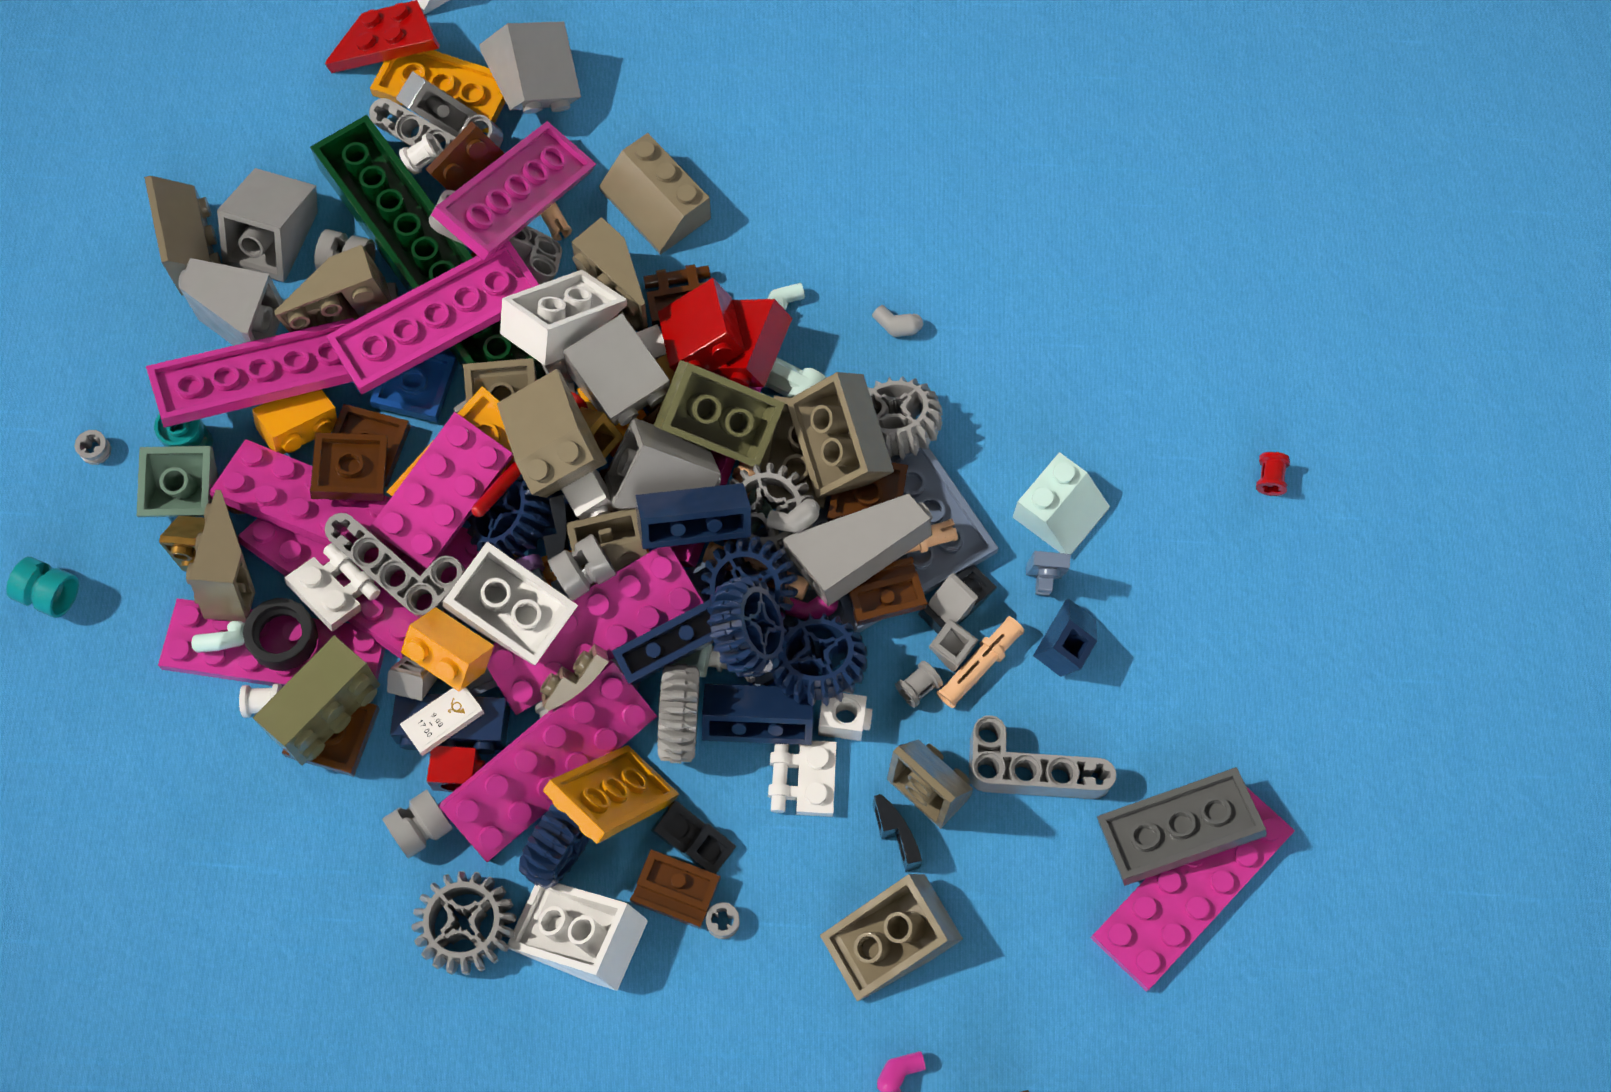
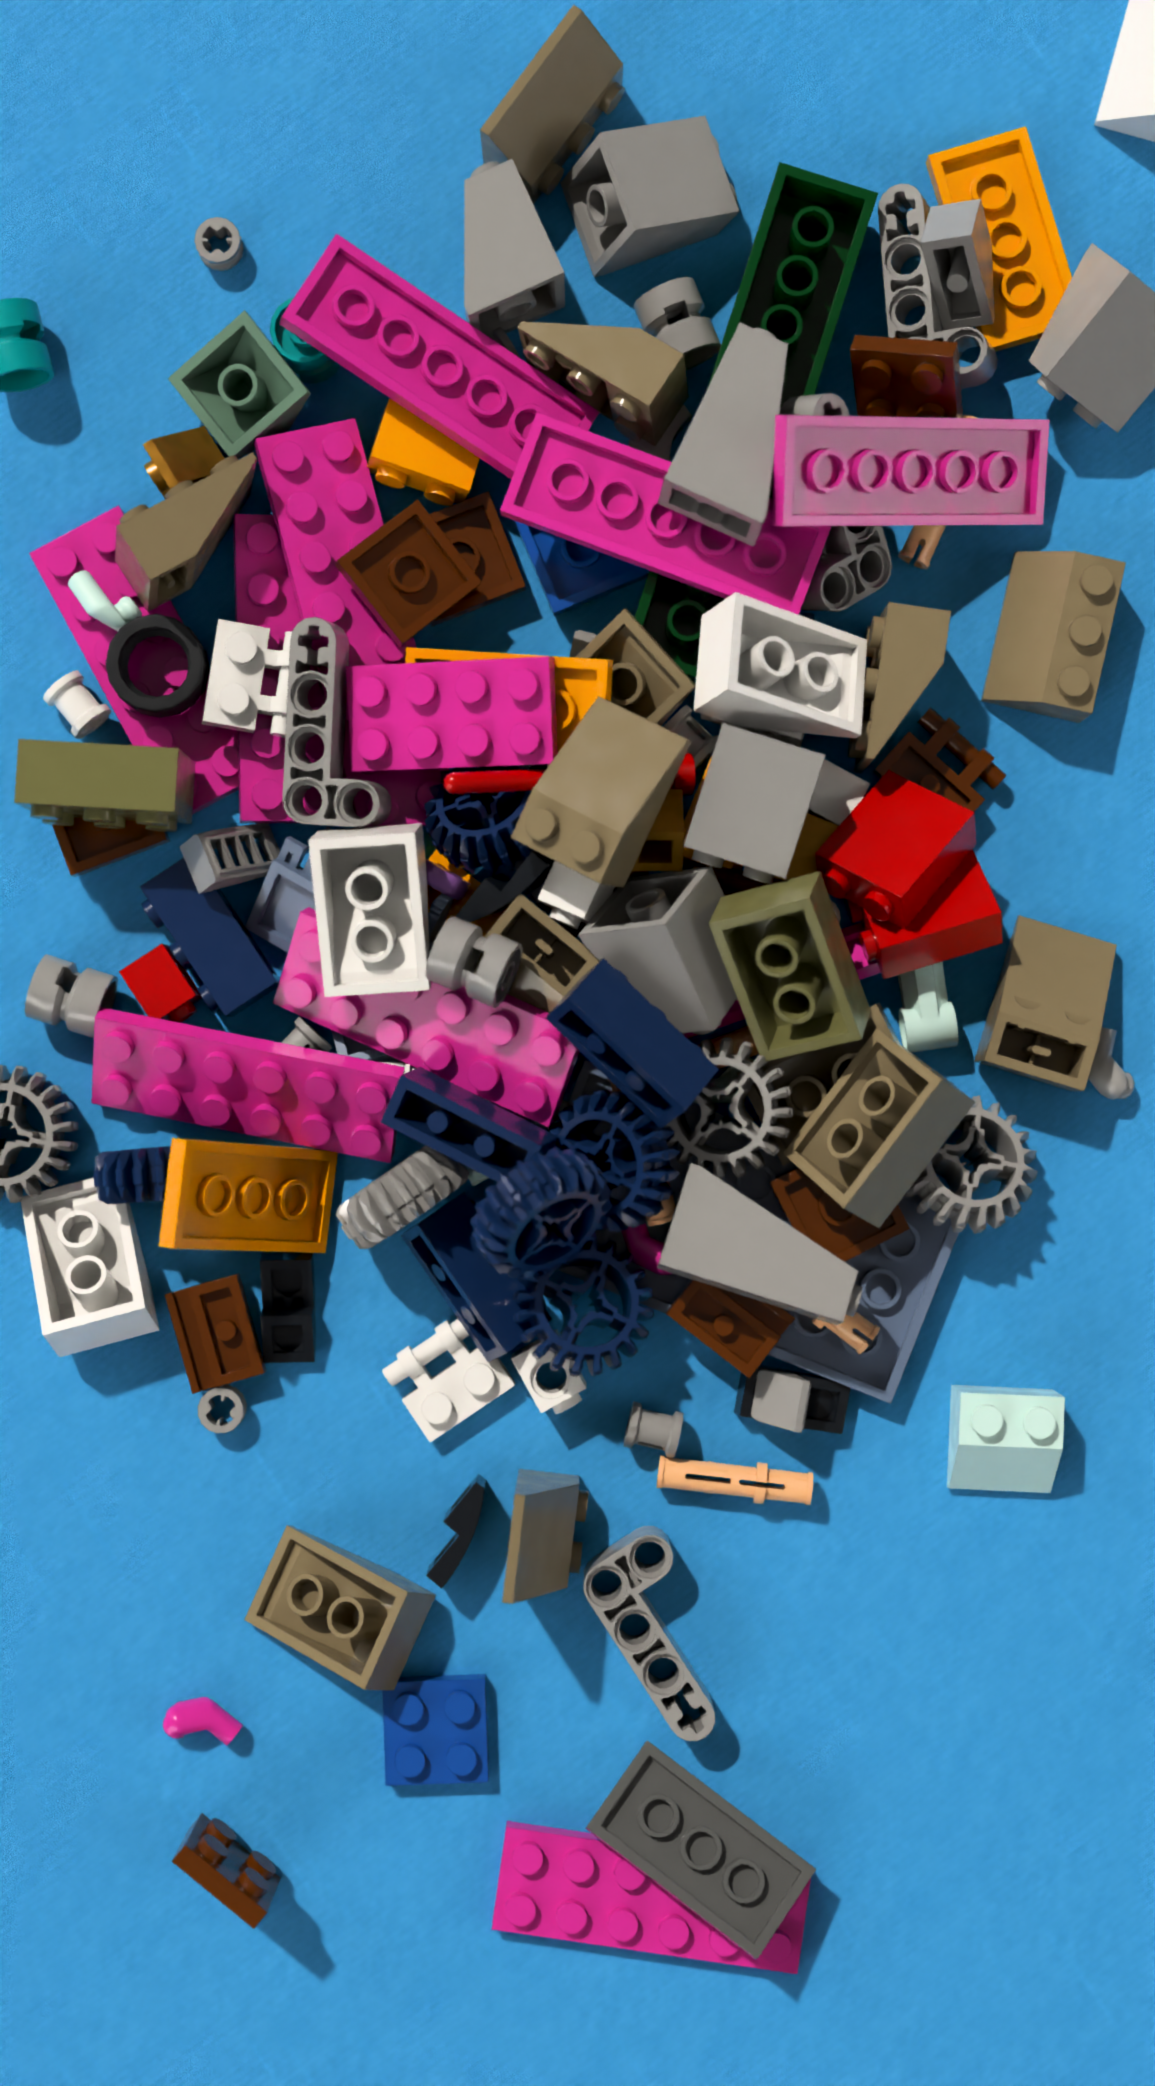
camera: 60 degrees right, 20 degrees up
(384, 36) = (1015, 110): red wing -> none
(420, 153) = (877, 307): white bush -> none
(427, 253) = (728, 450): none -> light grey slope
(441, 719) = (197, 933): white tile -> none
(447, 649) = (270, 878): light orange brick -> none
(566, 685) = (341, 1048): dark tan slope -> none
(787, 294) = (1029, 896): light aqua arm -> none
(797, 519) = (726, 1162): light grey arm -> none
(846, 326) = (1048, 1005): none -> dark tan slope
(952, 645) = (728, 1437): light grey slope -> none
(1005, 937) = (436, 1730): none -> blue plate
(1047, 567) = (902, 1485): sand blue plate -> none
(1068, 640) = (837, 1567): dark blue slope -> none

